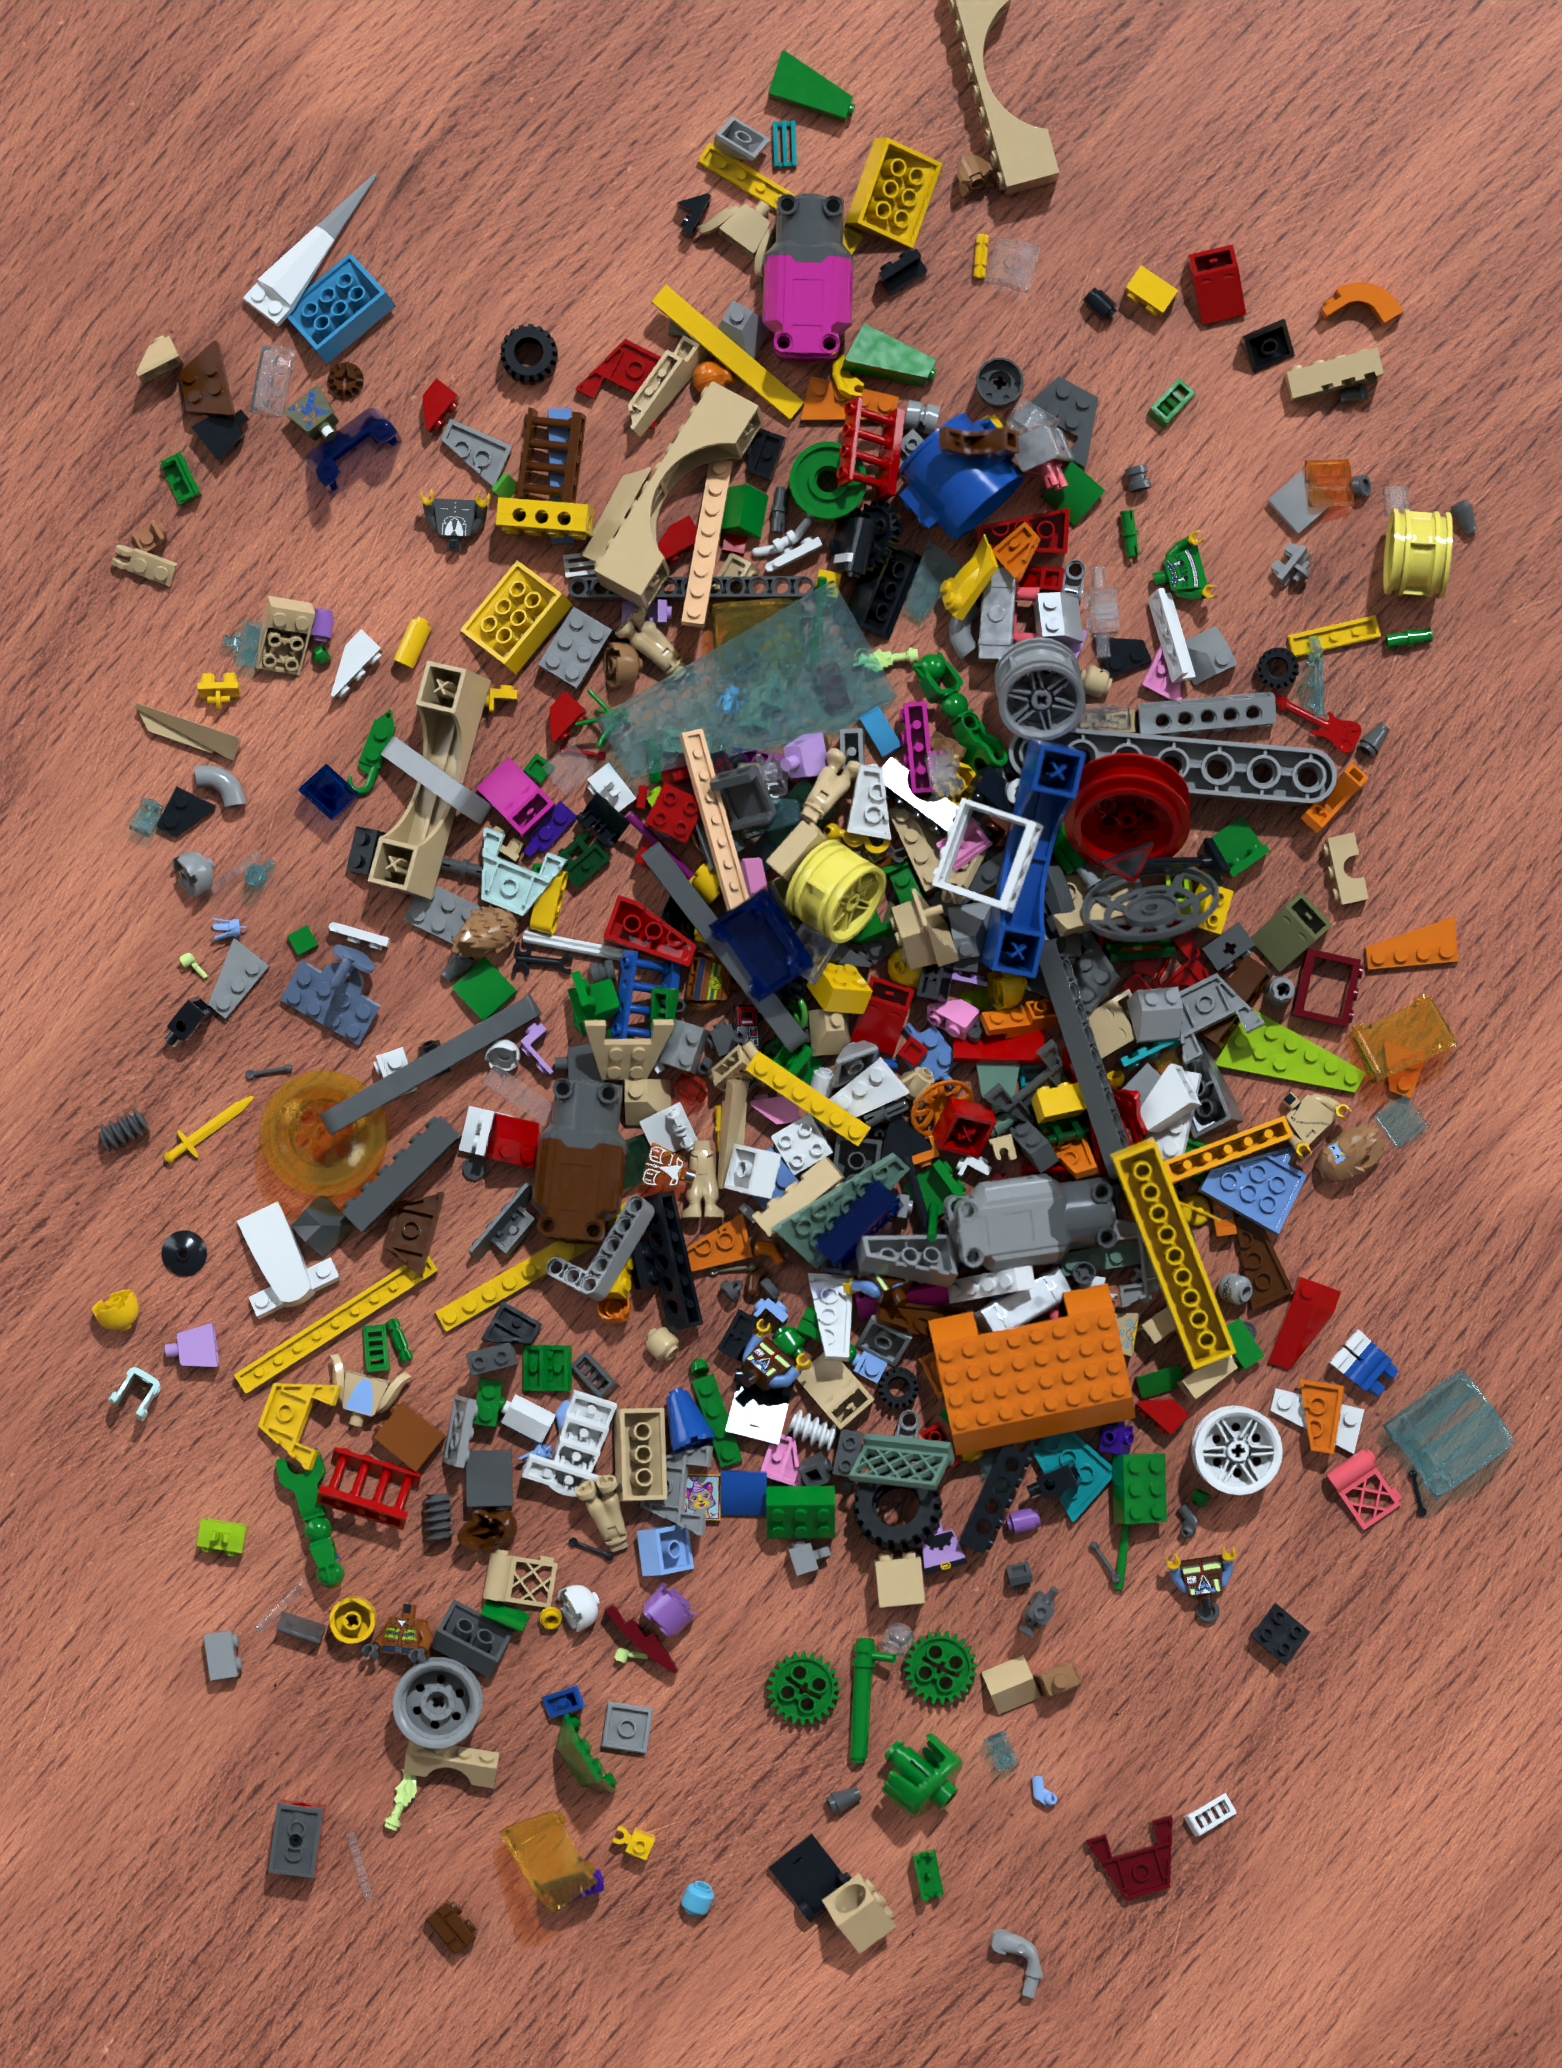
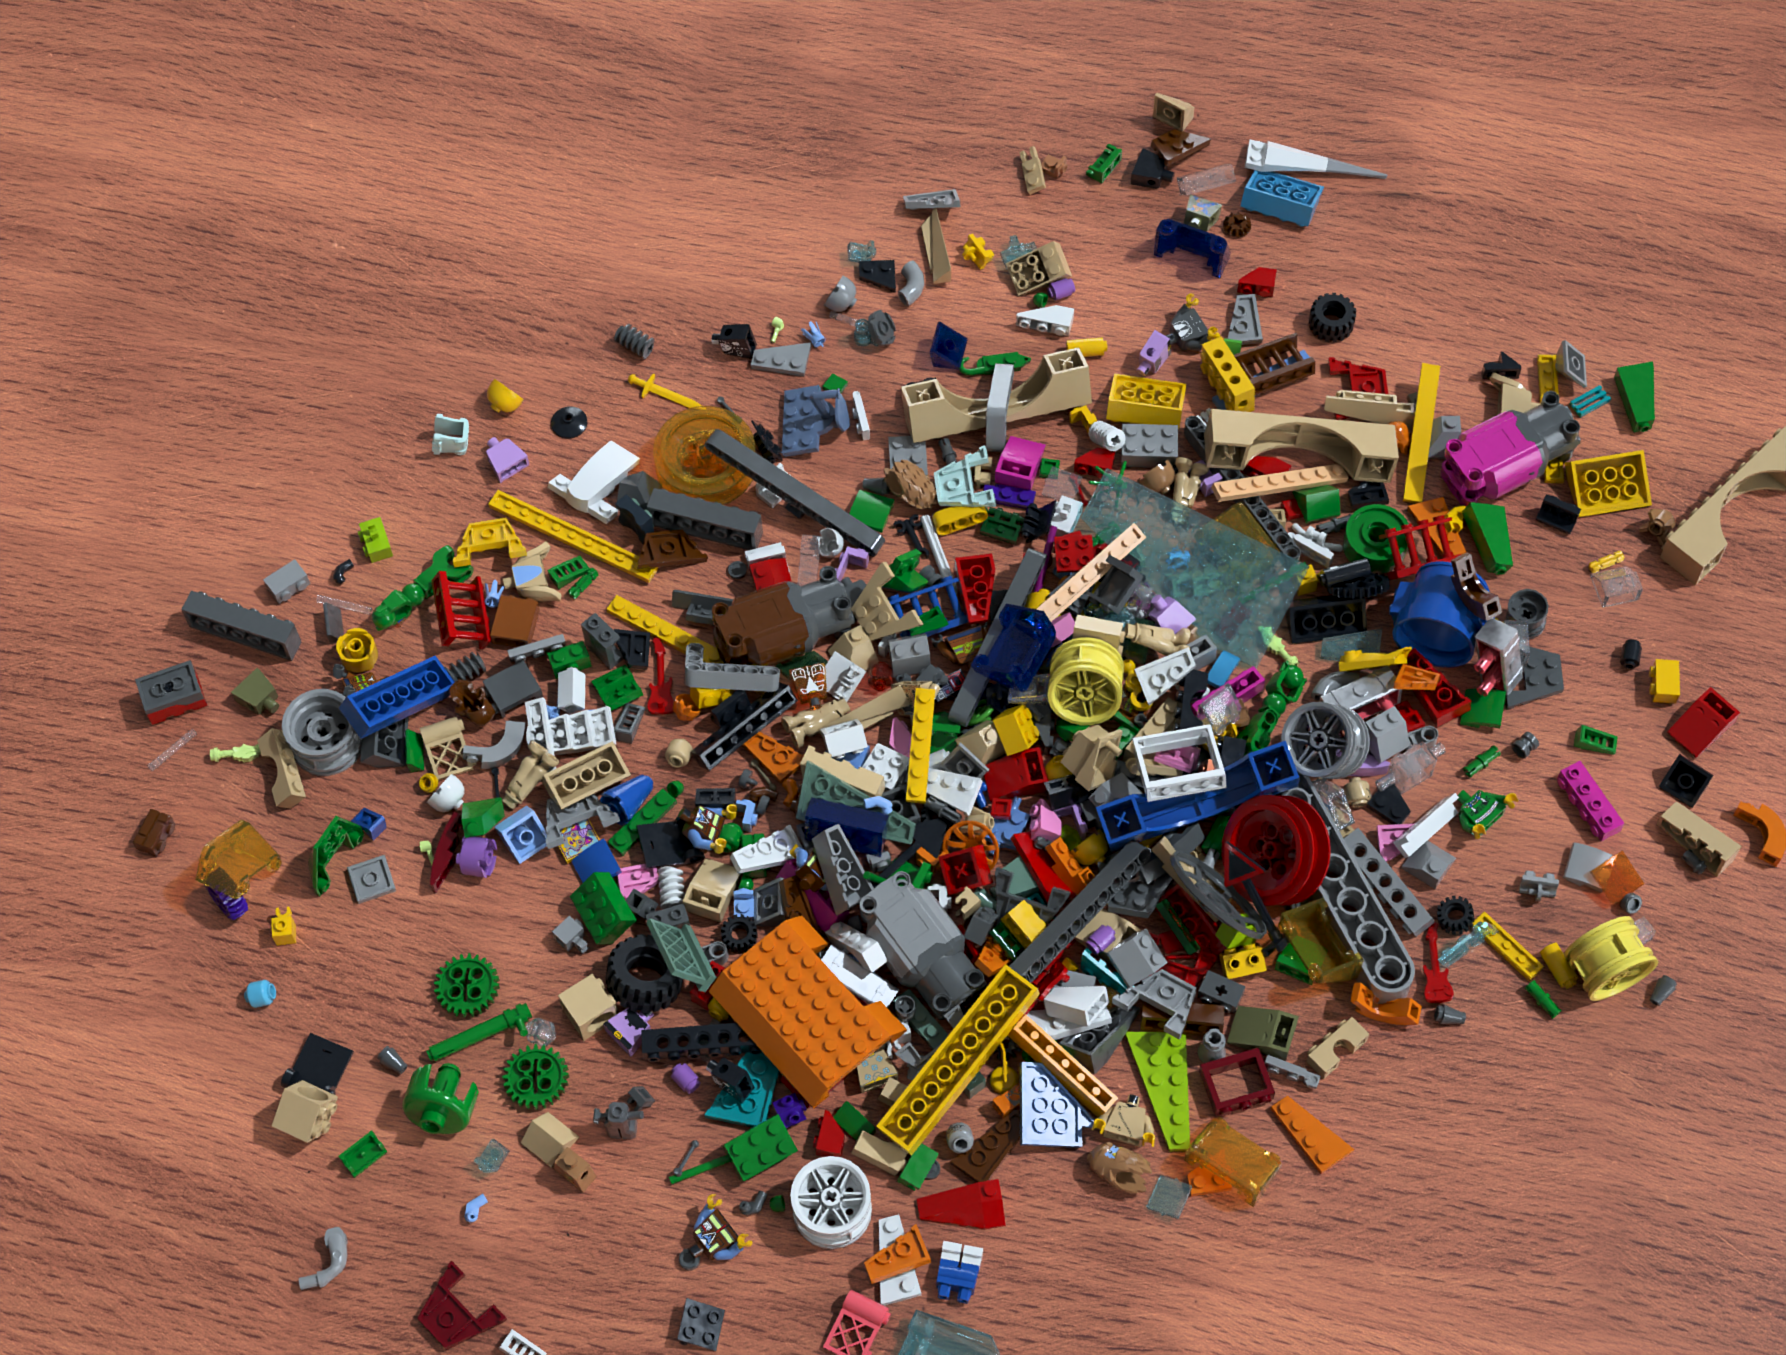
camera: 65 degrees right, 25 degrees down
(123, 699) = (937, 199): none -> light grey wing
(237, 1591) = (340, 570): none -> black arm
(260, 1724) = (241, 625): none -> dark grey brick
(264, 852) = (881, 328): none -> dark grey tile
(331, 1055) = (763, 440): none -> black hinge
(344, 1747) = (256, 693): none -> olive torso
(348, 1248) = (634, 517): none -> black brick
(370, 1446) = (492, 598): none -> light blue piece
(448, 1607) = (397, 697): none -> blue brick
(462, 568) = (1154, 353): none -> lavender torso
(542, 689) = (1106, 436): none -> white piece
(560, 1525) = (501, 752): none -> light grey arch
(586, 1329) = (660, 699): none -> red piece
(626, 1585) = (481, 816): none -> green slope
(858, 1179) = (878, 801): none -> light blue arm
(1120, 1039) = (1101, 939): none -> medium lavender brick
(1234, 454) = (1590, 801): none -> dark pink brick
(1243, 827) = (1318, 944): none -> clear yellow windscreen
(1346, 928) = (1292, 1071): none -> light grey hinge
(1375, 600) = (1559, 965): none -> yellow brick

